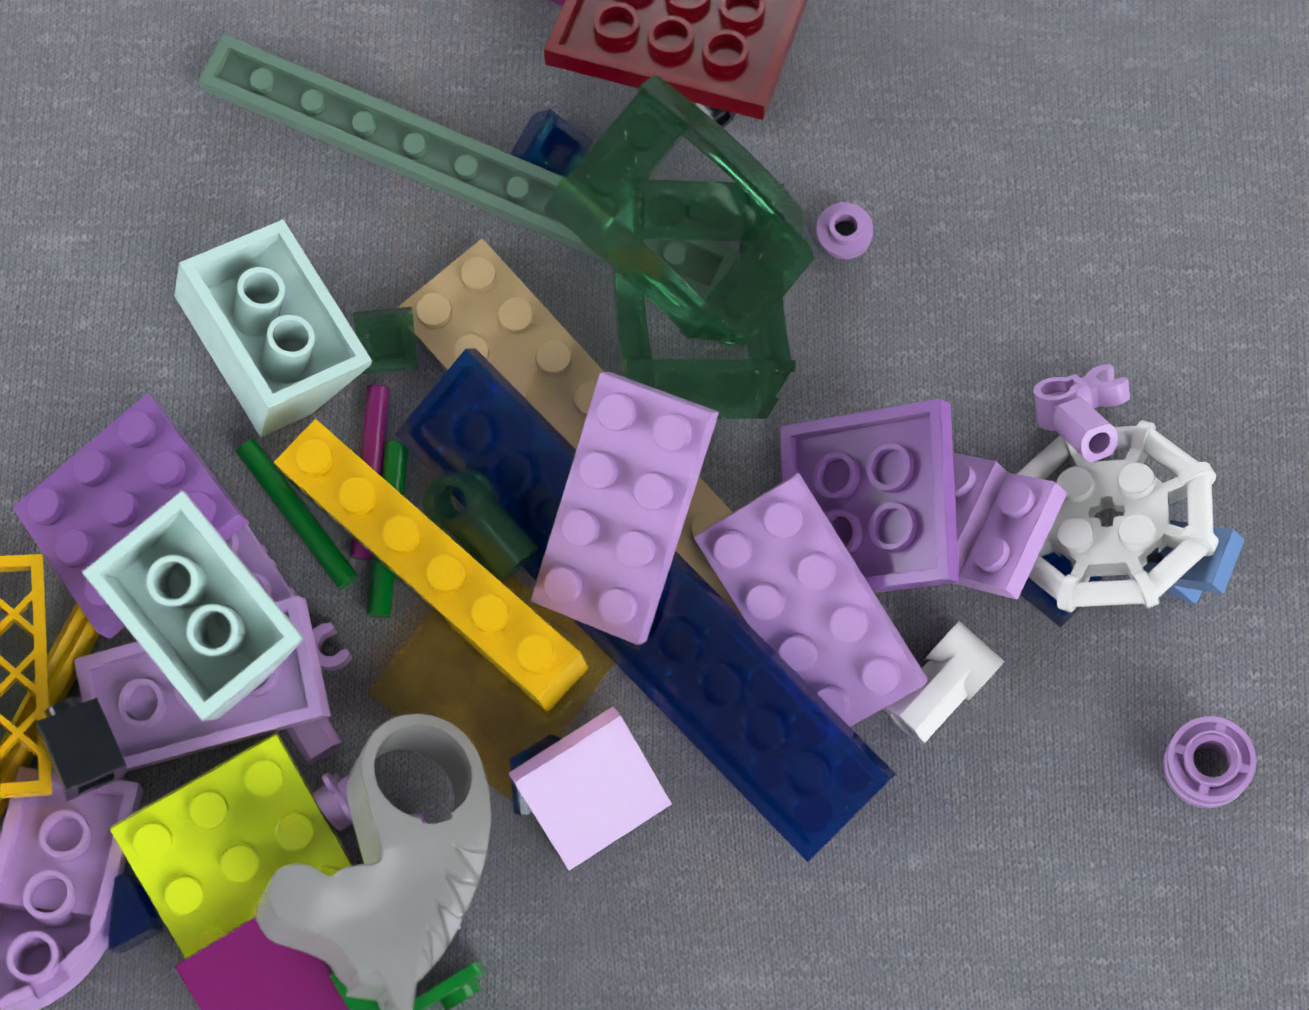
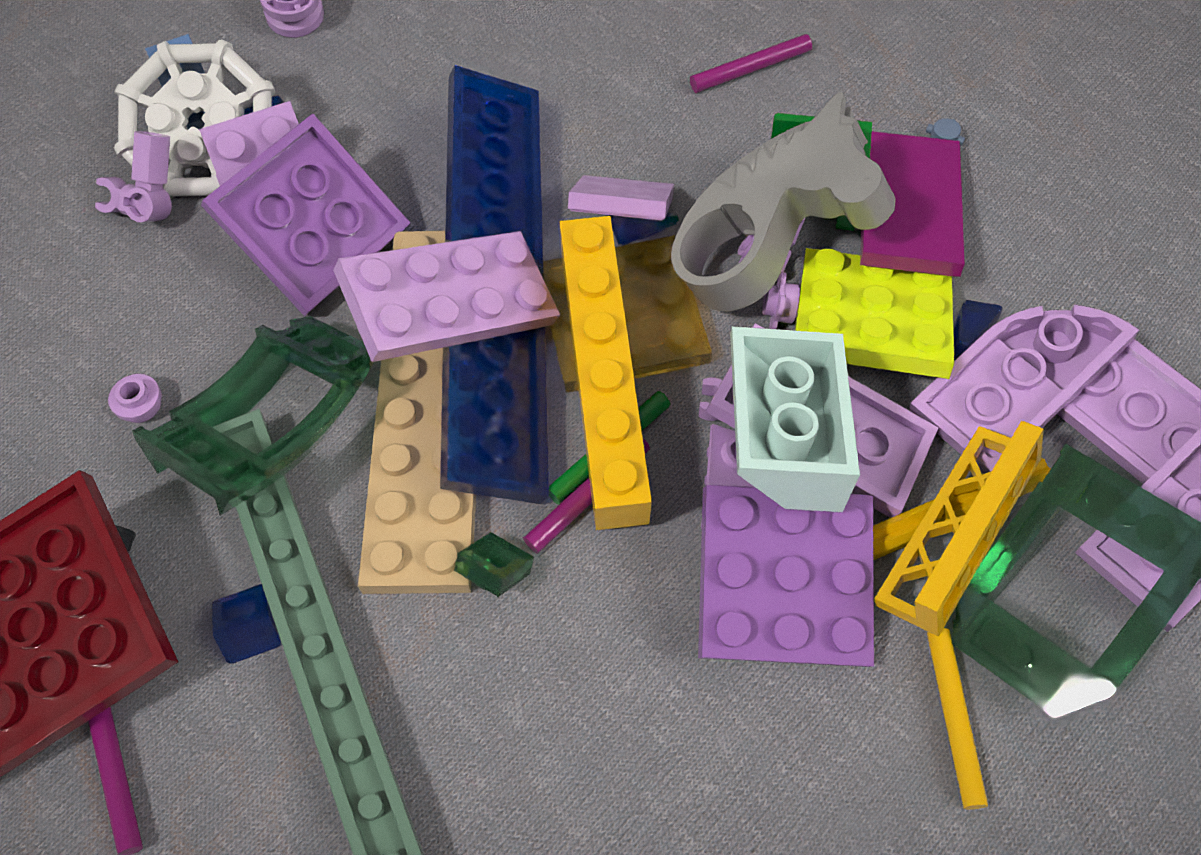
camera: 135 degrees left, 15 degrees down
(80, 746) = (939, 424): black brick -> none
(270, 326) = (567, 634): light aqua slope -> none
(297, 514) = (662, 506): green bar -> none
(484, 526) = (547, 377): clear green piece -> none
(619, 168) = (217, 488): clear green wedge -> none
(811, 601) = (397, 186): lavender plate -> none
(954, 672) = (360, 124): white piece -> none

